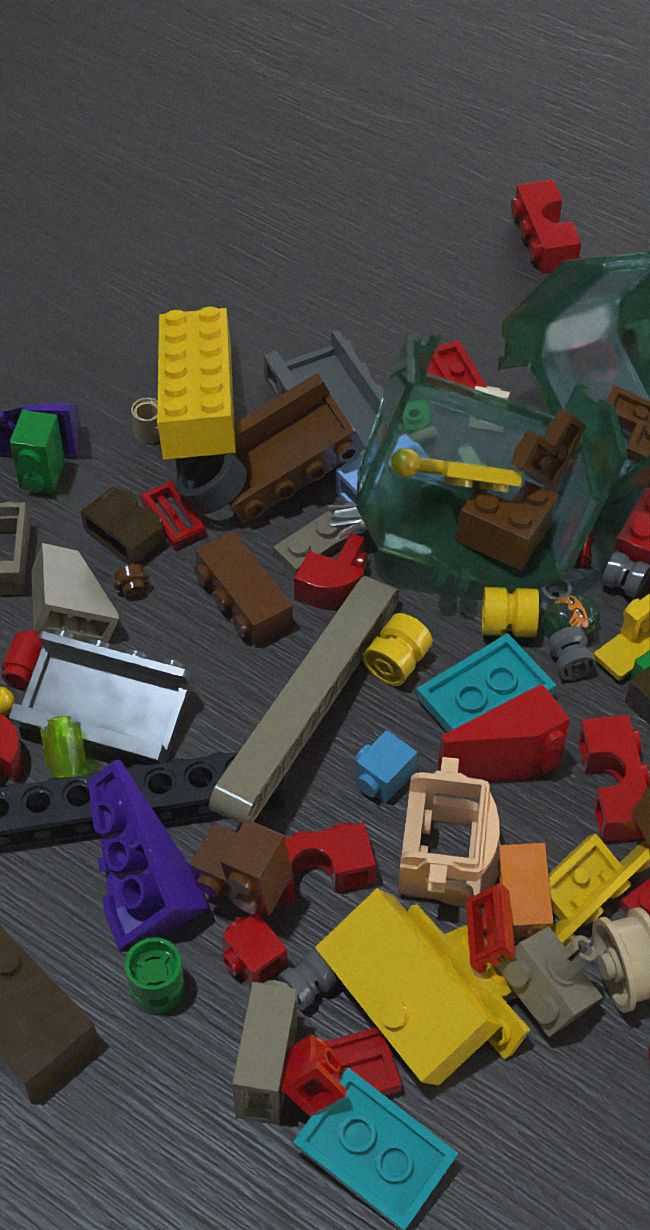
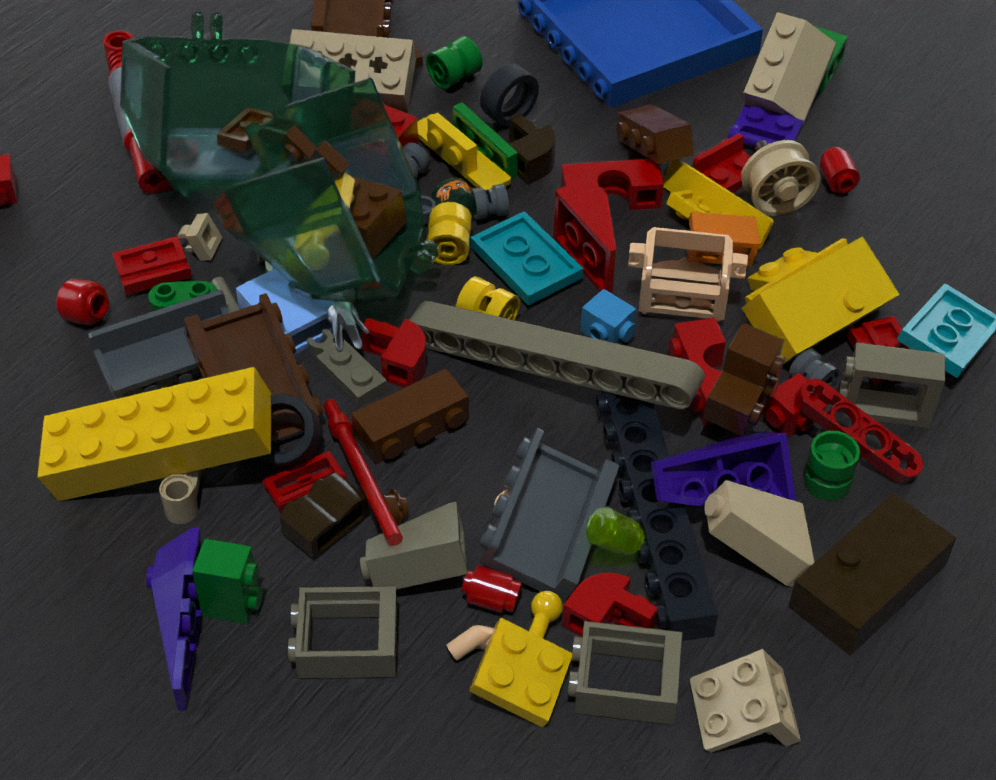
camera: 90 degrees left, 5 degrees down
(64, 888) = (762, 529): none -> tan slope
(160, 545) = (342, 429): none -> red bar
(195, 1004) = (861, 426): none -> red beam
(319, 1068) = (916, 340): red brick -> none
(391, 326) = (82, 301): none -> red head
(496, 923) = (738, 239): red tile -> none
(552, 978) = (802, 223): dark tan brick -> none

